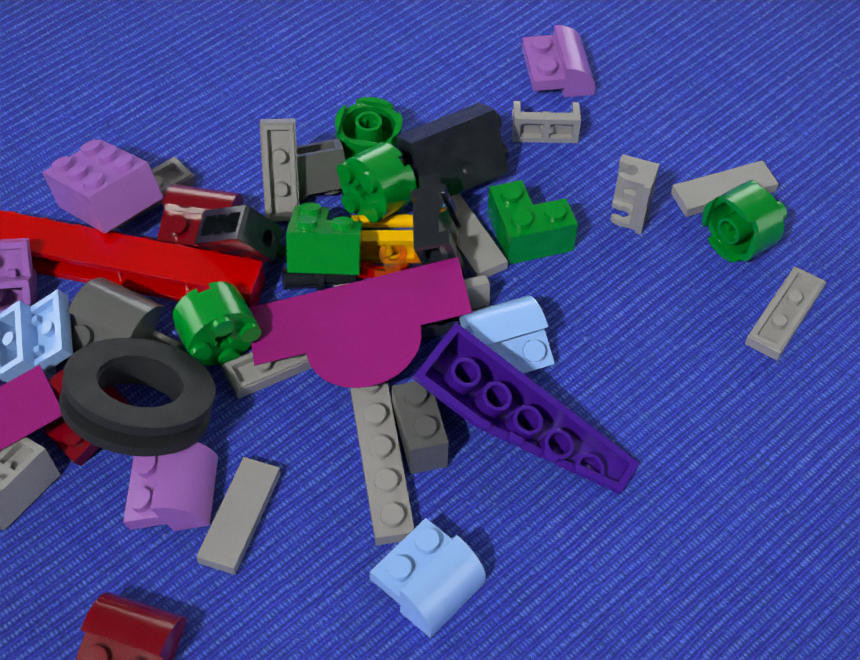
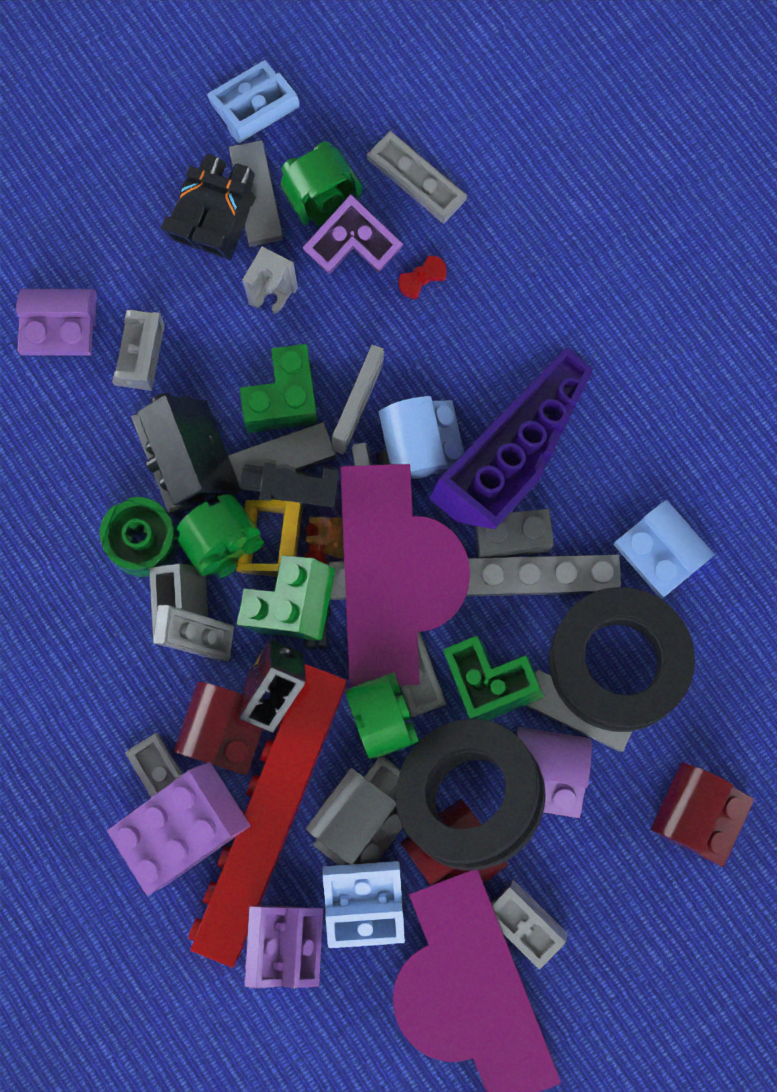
camera: 80 degrees left, 25 degrees up
(257, 410) = (491, 690): none -> green brick
(295, 593) = (661, 628): none -> black tyre
(535, 278) = (357, 400): none -> light grey tile
(690, 335) = (432, 270): none -> red piece
(696, 149) = (212, 207): none -> black hips
(701, 253) = (352, 229): none -> medium lavender brick
(812, 169) = (253, 101): none -> light blue brick

